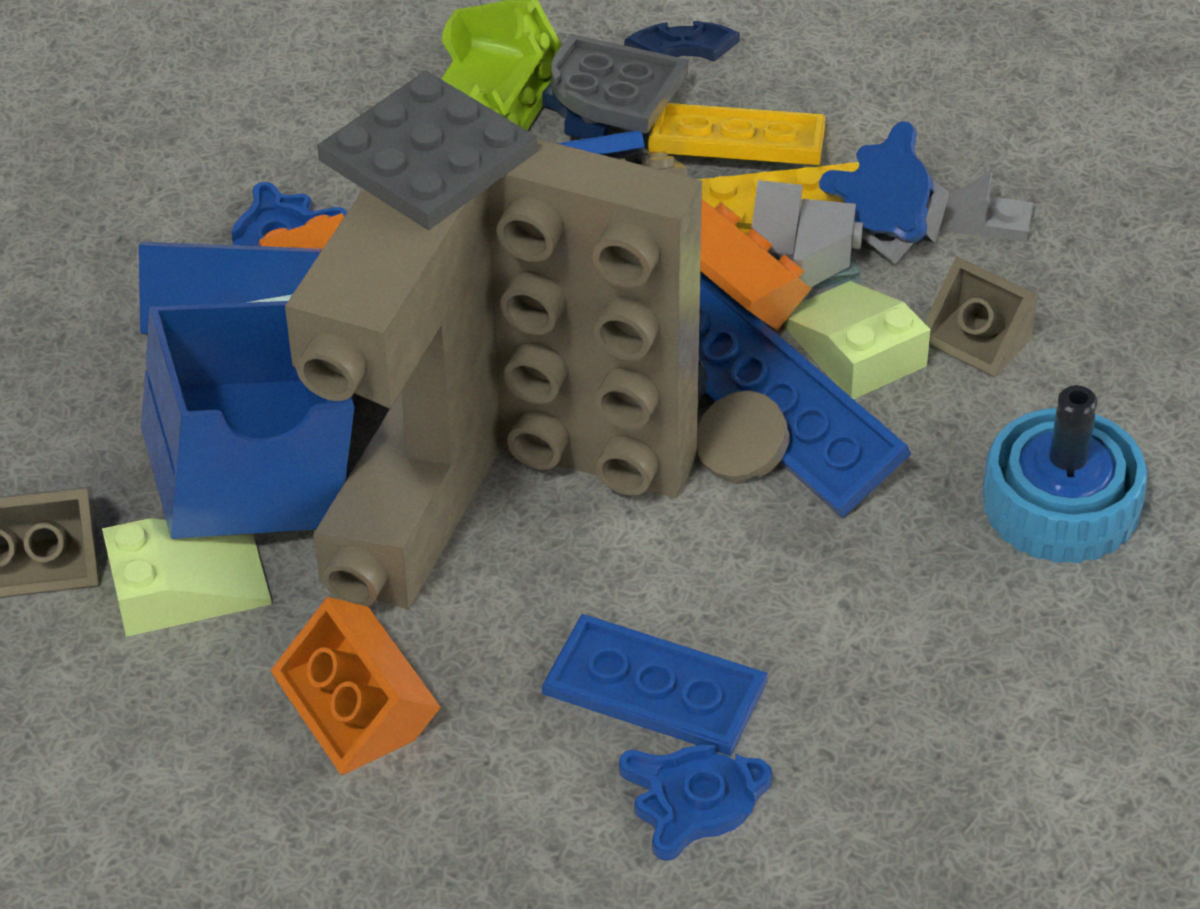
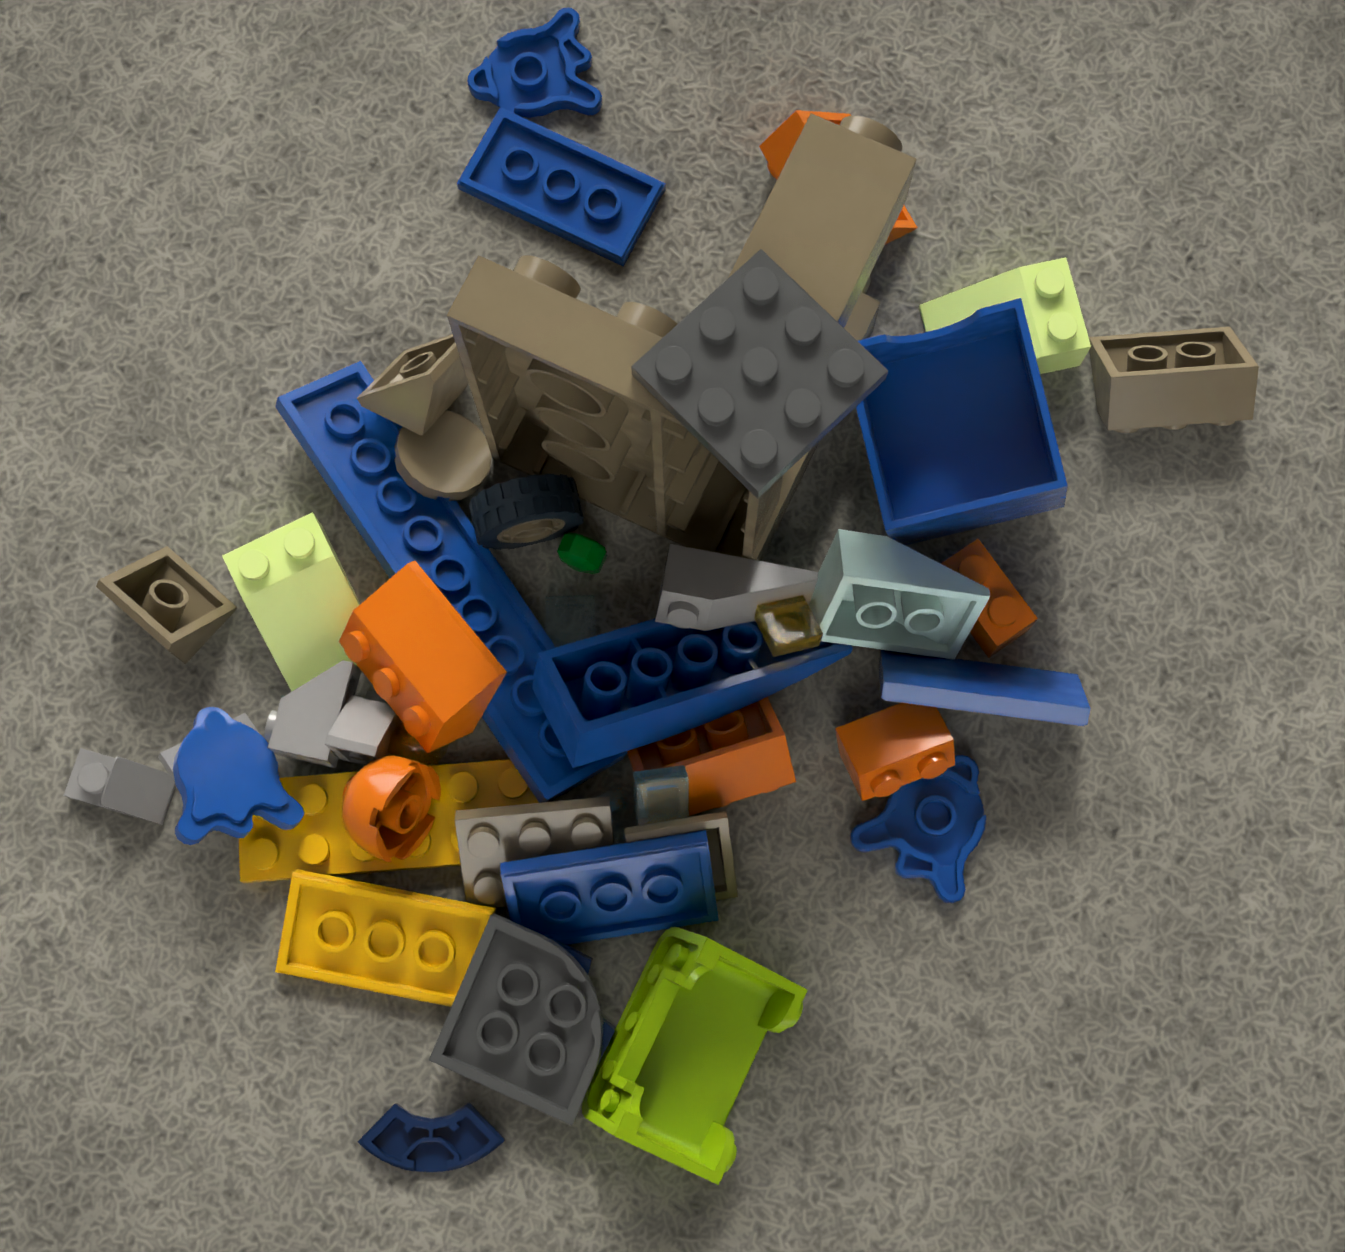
camera: 175 degrees left, 30 degrees up
(750, 161) = (389, 806): none -> orange cylinder
(773, 476) = (418, 385): none -> dark tan slope
(1064, 481) = (130, 365): dark azure wheel -> none

